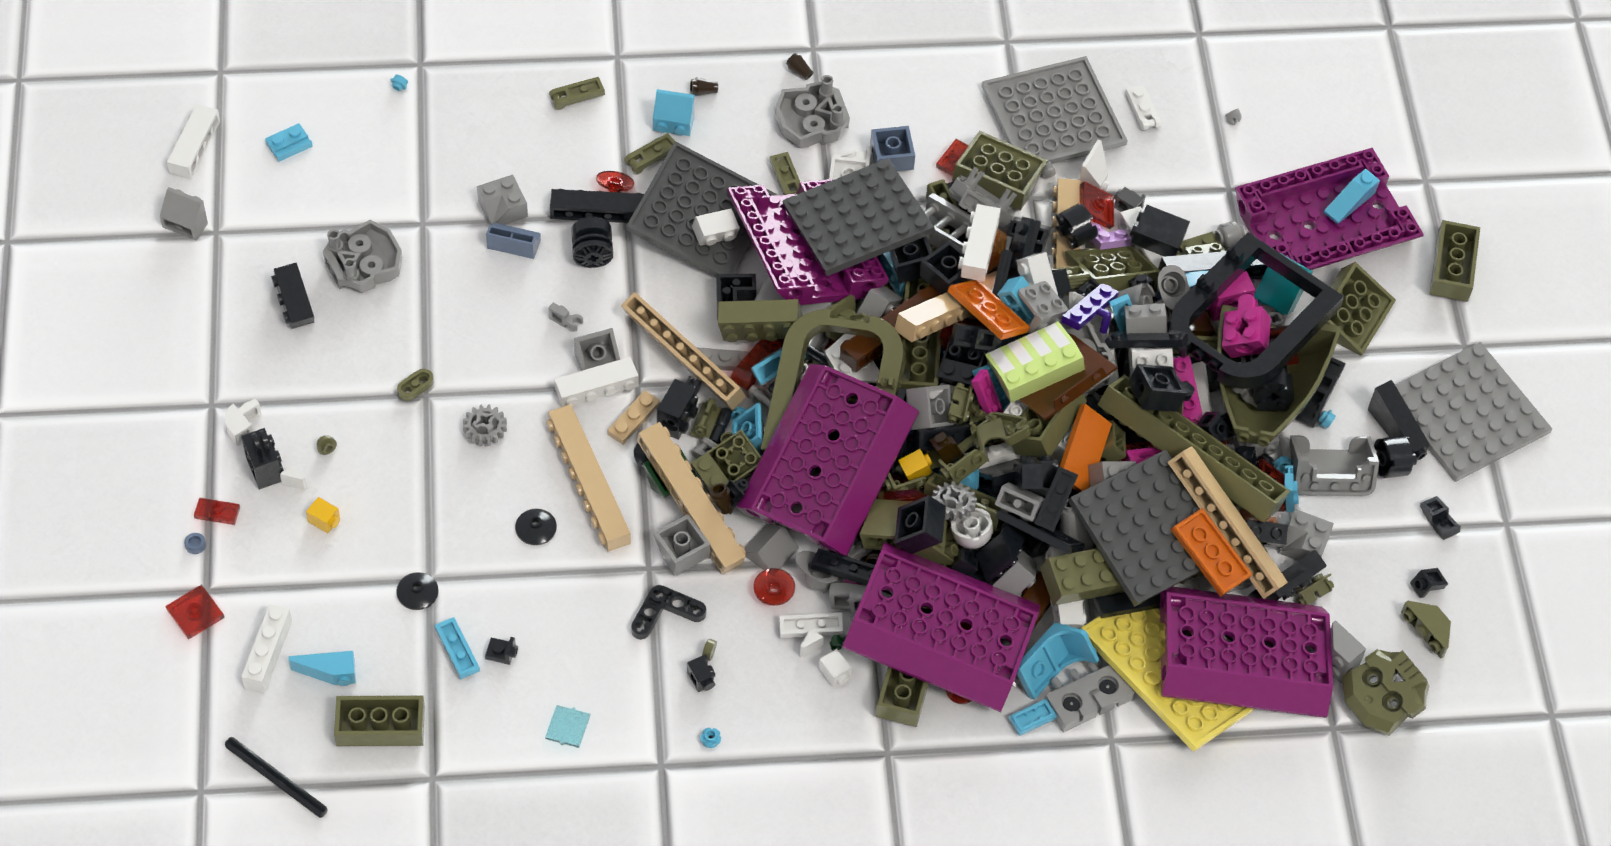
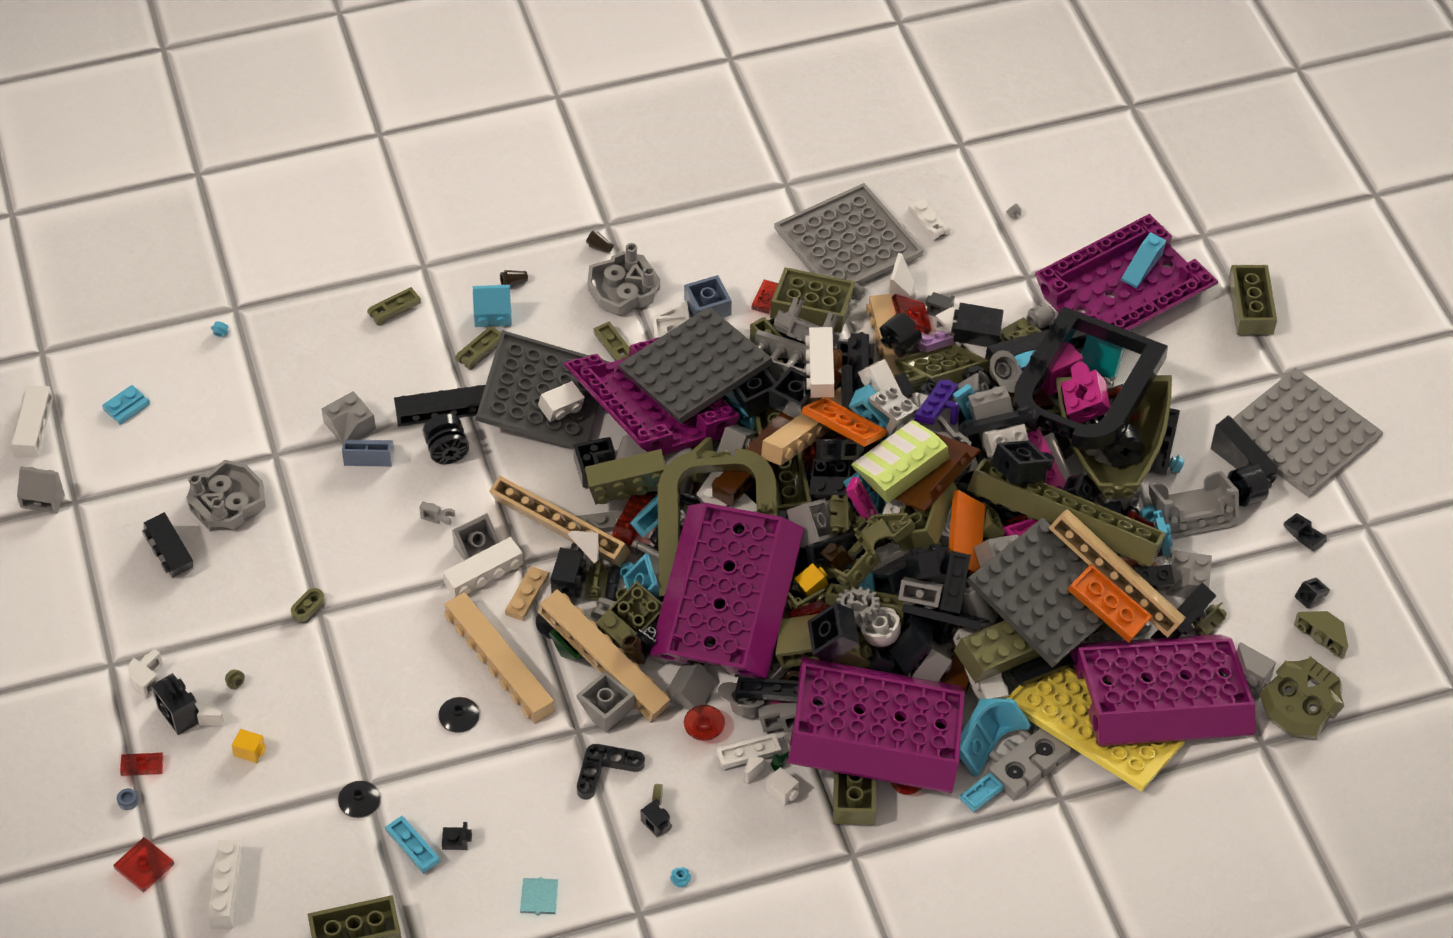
camera: 10 degrees left, 5 degrees down
(333, 667) = (290, 889): medium azure slope -> none
(484, 425) = (385, 629): light grey gear -> none
(615, 181) = (452, 379): clear red dish -> none
(702, 379) = (587, 542): none -> white slope
(1362, 307) = (1183, 358): olive slope -> none

